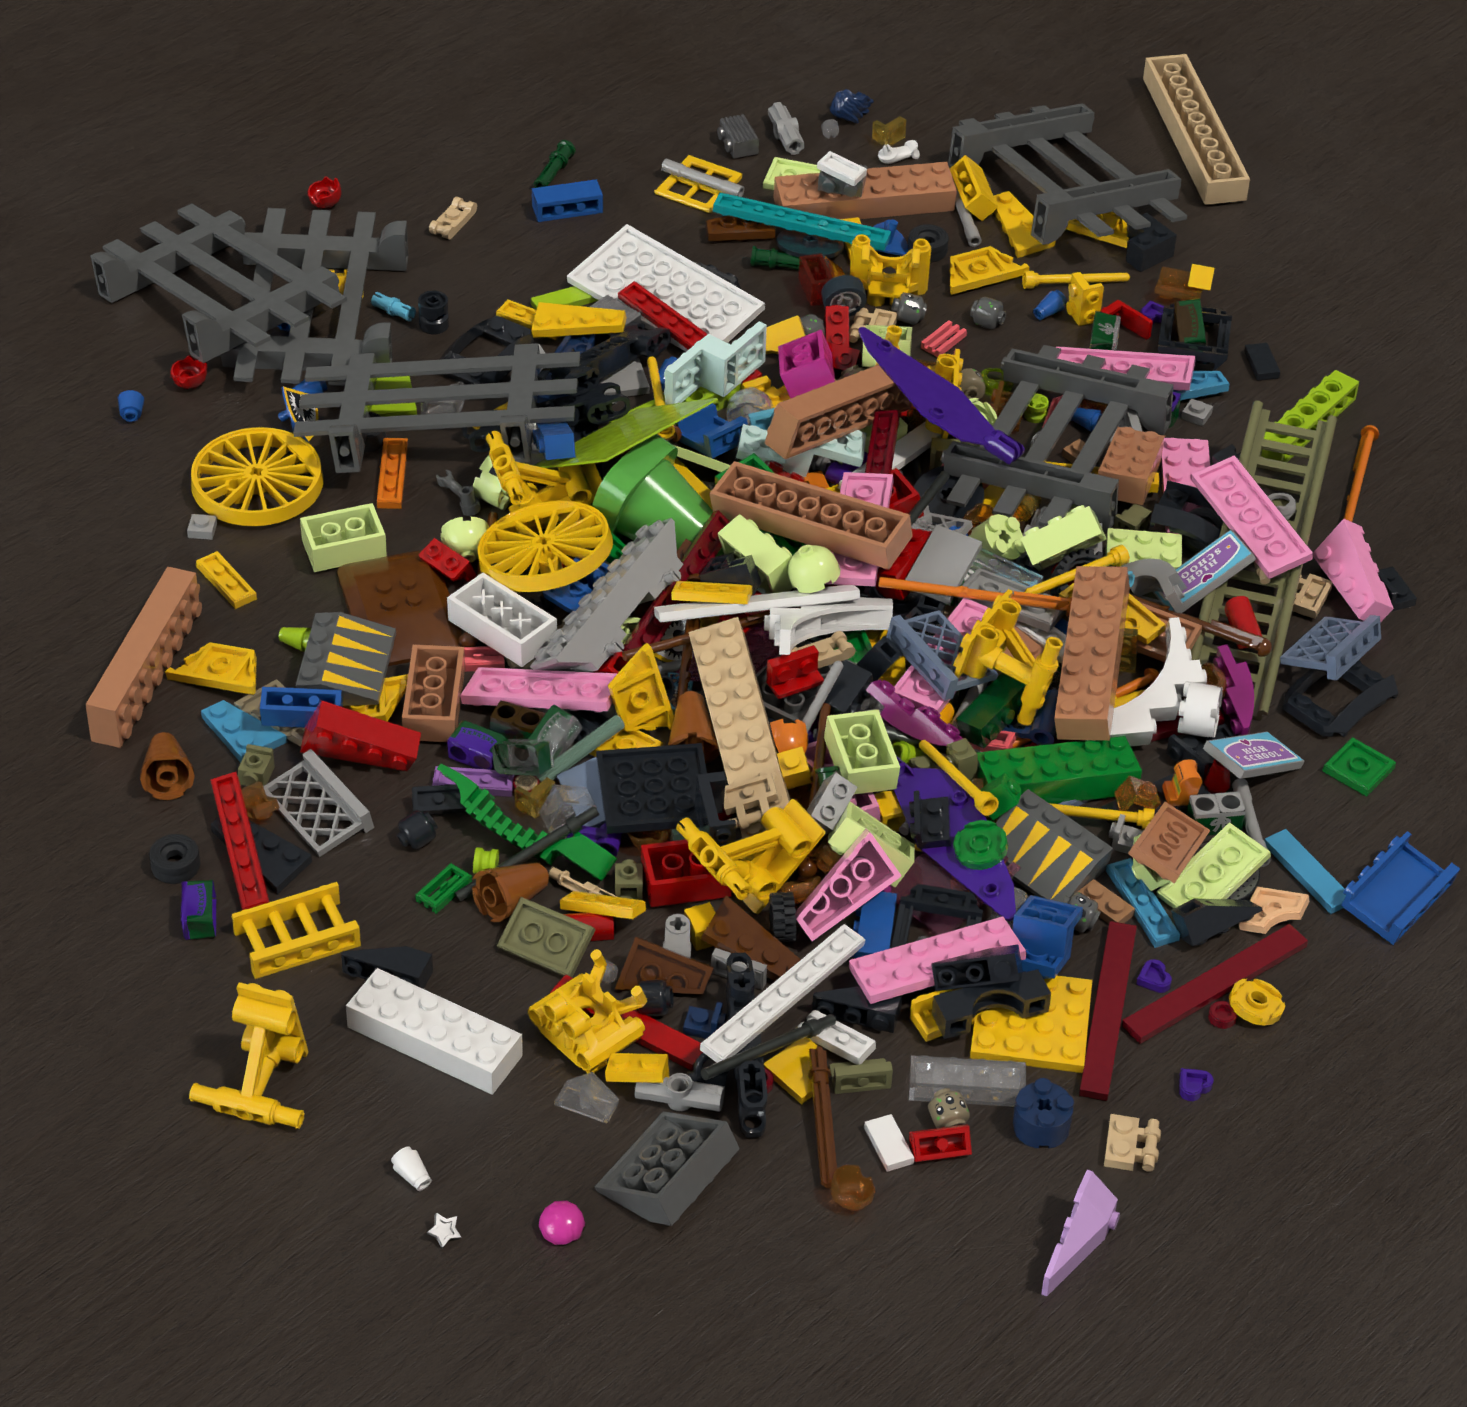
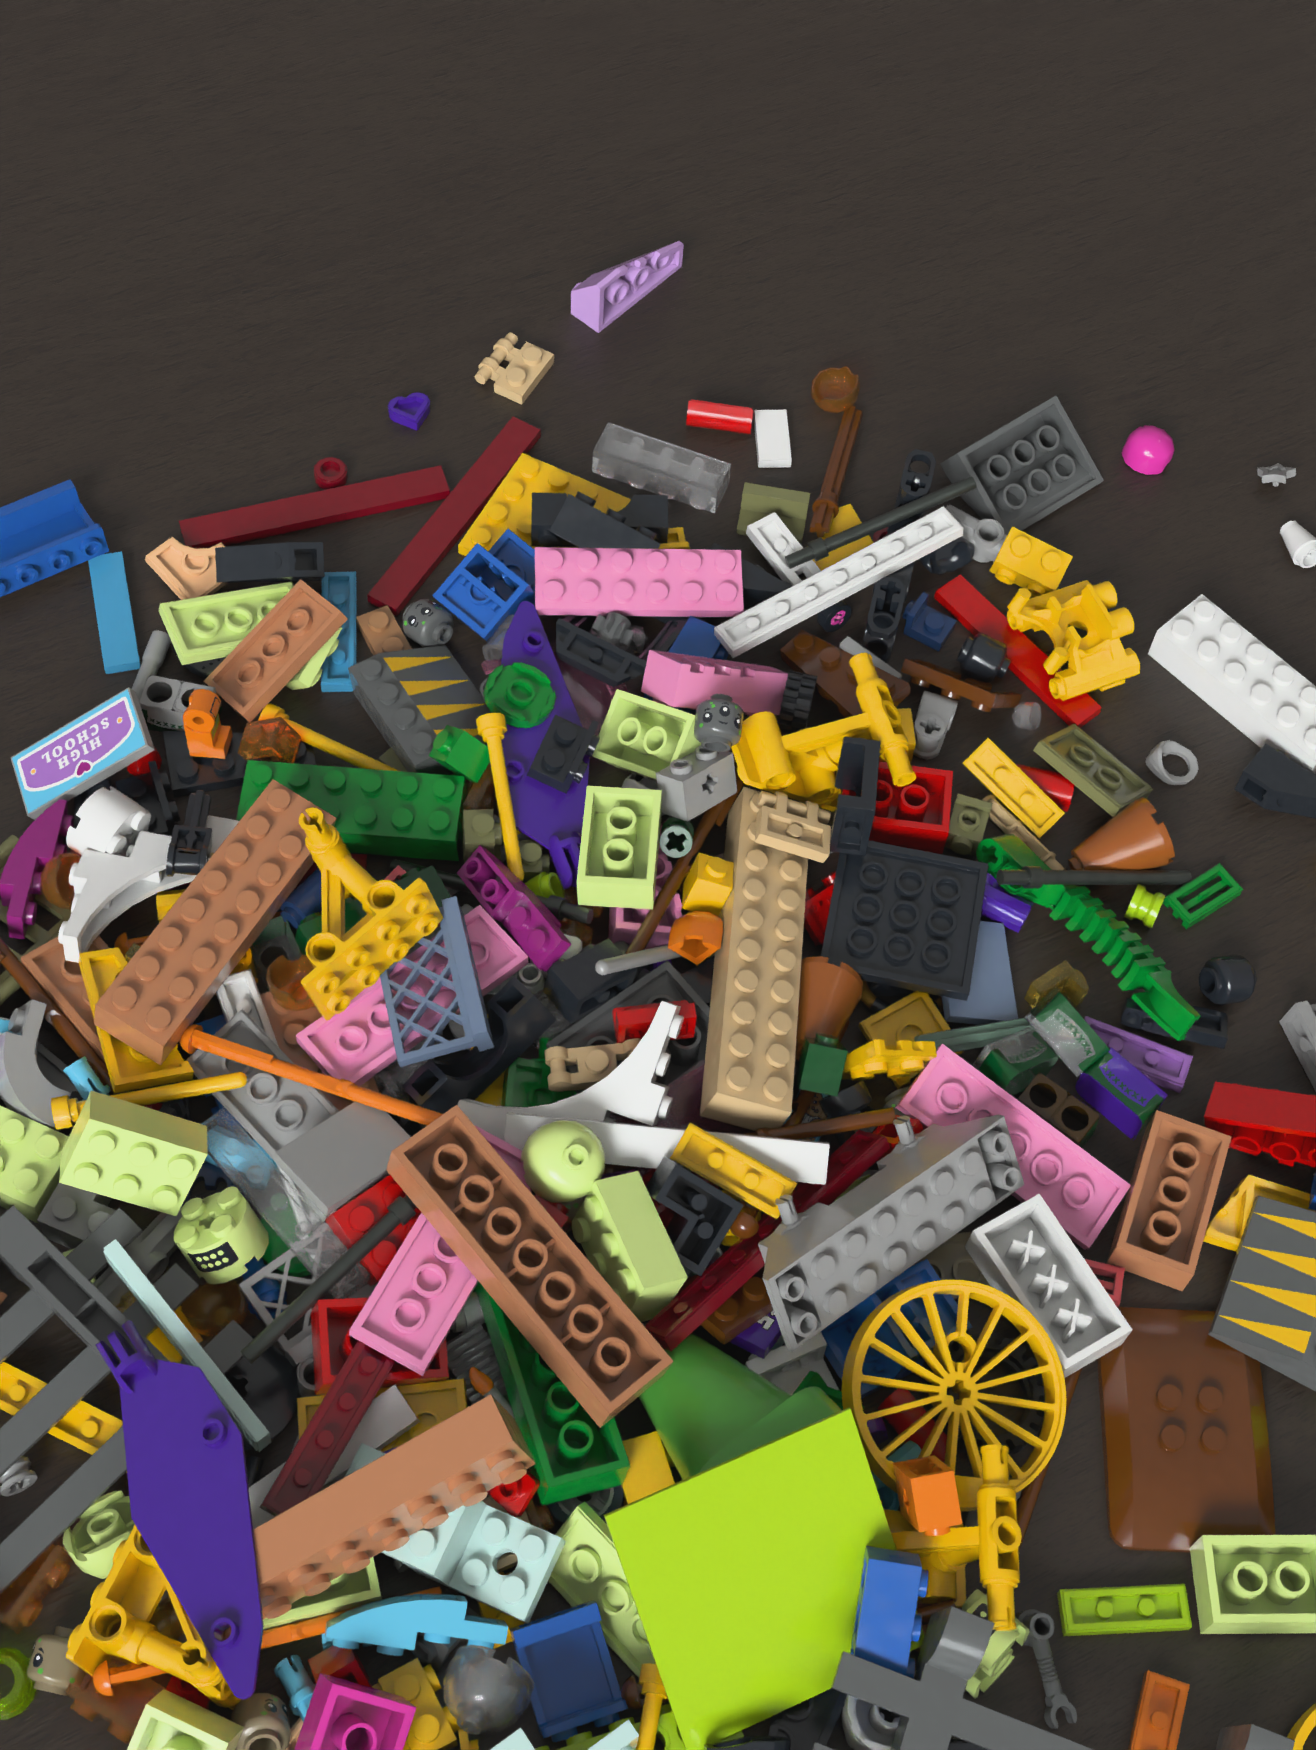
camera: 165 degrees left, 15 degrees up
(416, 525) = (1124, 1609): none -> lime tile
(447, 561) = (1098, 1476): red bracket -> none
(464, 536) = (1061, 1516): yellowish green cylinder -> none
(491, 960) = (1164, 748): none -> light grey piece
(549, 479) = (927, 1495): none -> orange brick
(563, 803) = (1017, 953): clear slope -> none
(588, 1097) = (1093, 564): clear slope -> none
(679, 678) = (821, 1064): none -> dark green brick
(827, 810) = (718, 723): none -> dark grey head
(940, 923) = (613, 629): none -> dark grey gear
(948, 1109) = (698, 435): dark tan head -> none
(981, 477) = (185, 1343): none -> light aqua tile
(1032, 635) = (285, 983): none -> clear orange hair
(1043, 1114) = (596, 399): dark blue brick -> none
(1123, 835) = (308, 711): light grey bracket -> none
(1140, 696) = (191, 842): none -> black connector
(1154, 977) = (381, 537): dark purple tile -> none
(1256, 1013) = (288, 483): yellow tile -> none

